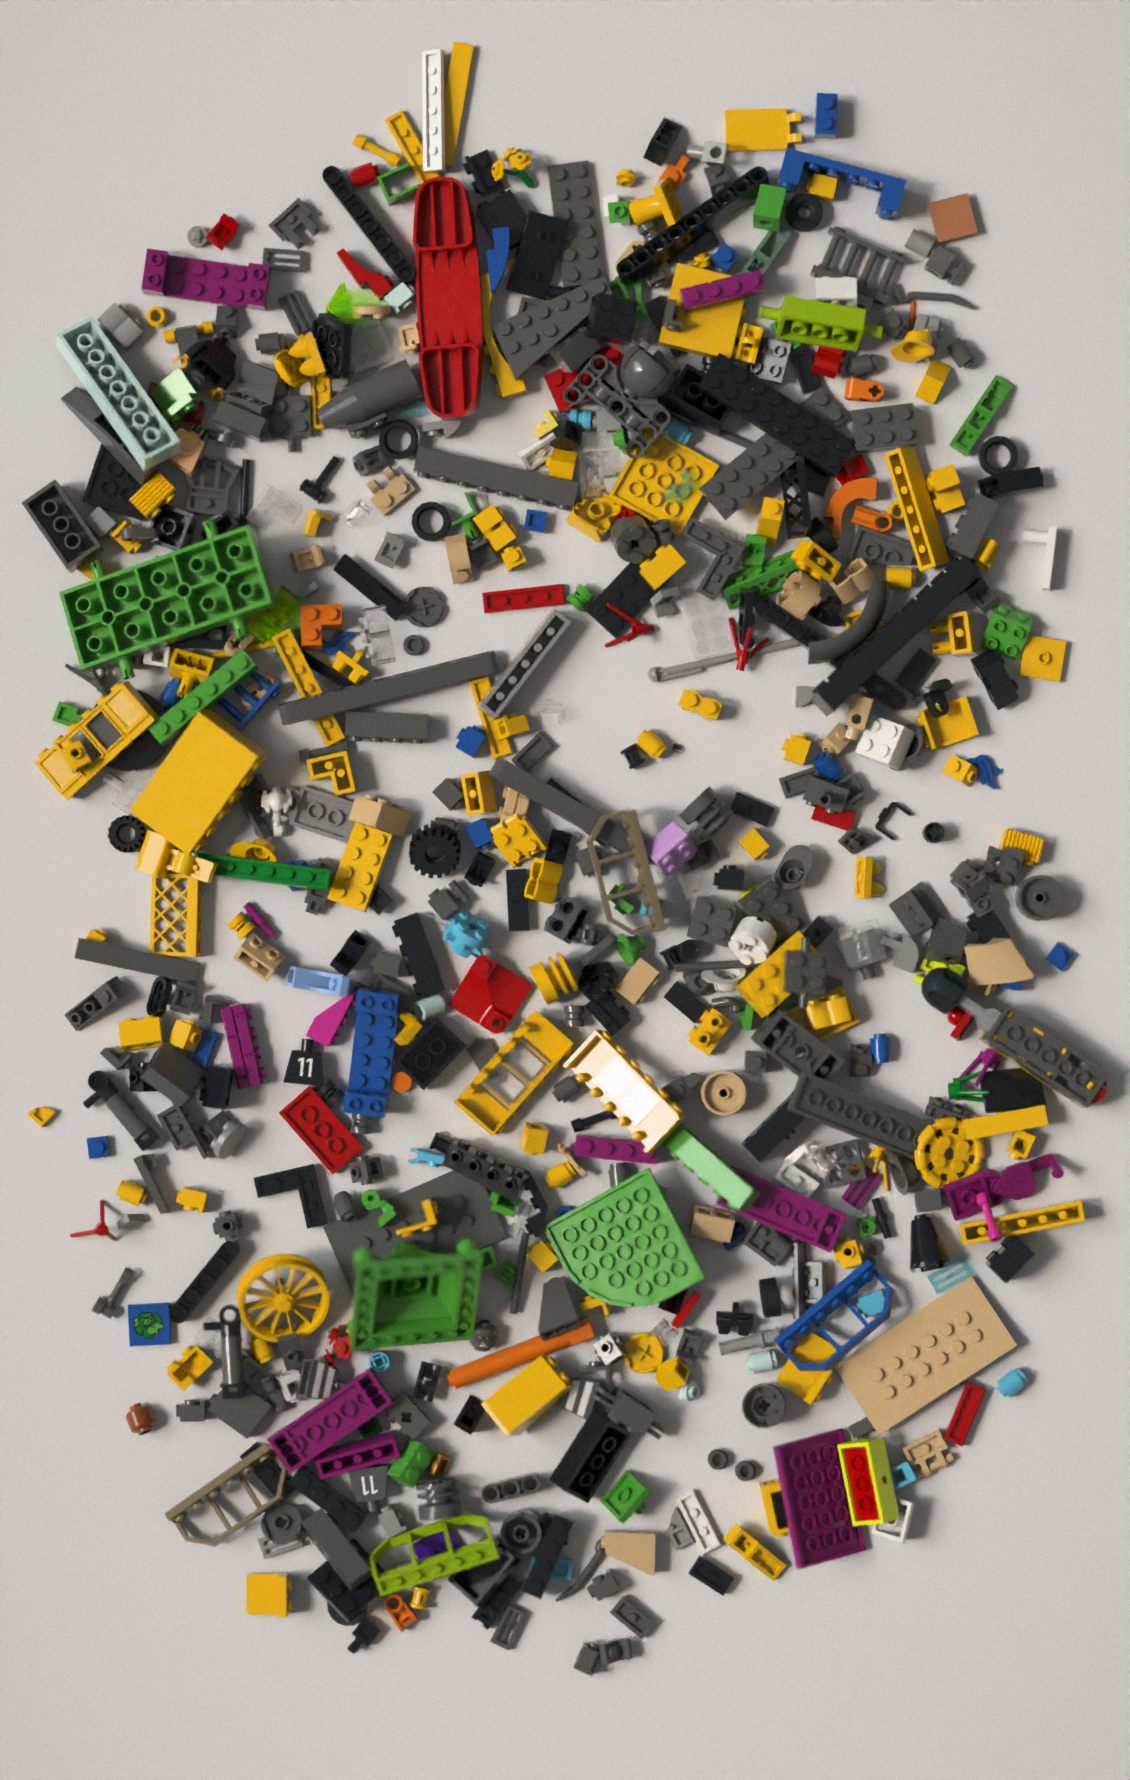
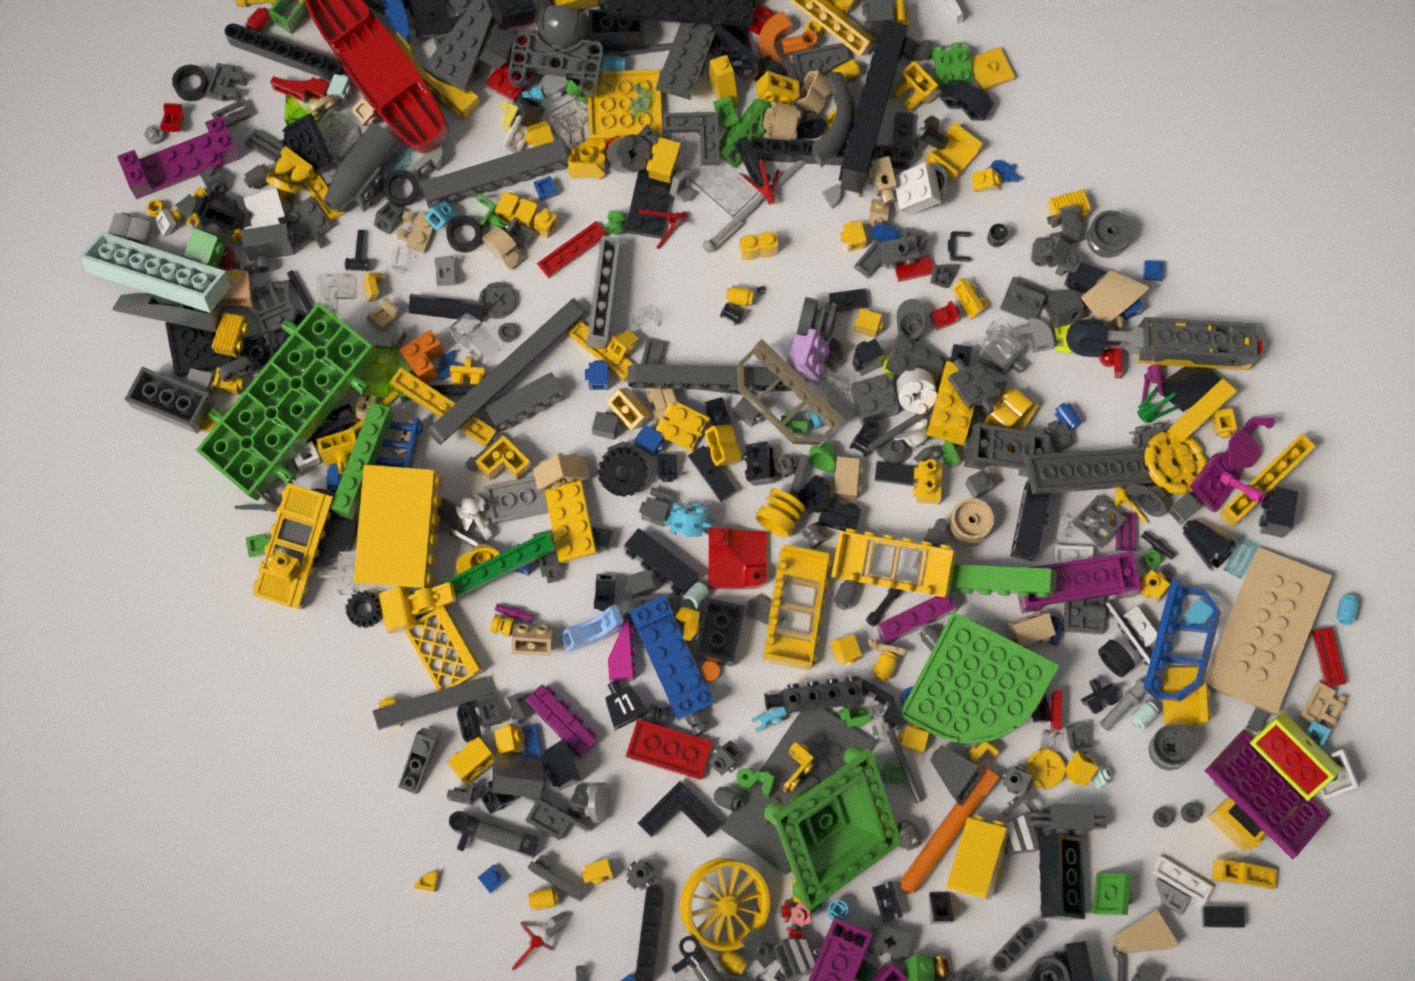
camera: 35 degrees left, 15 degrees down
(157, 338) = (165, 222): none -> white tile
(263, 187) = (187, 70): none -> black tyre
(419, 491) = (444, 212): none -> medium azure brick
(831, 881) = (945, 316): none -> red bracket

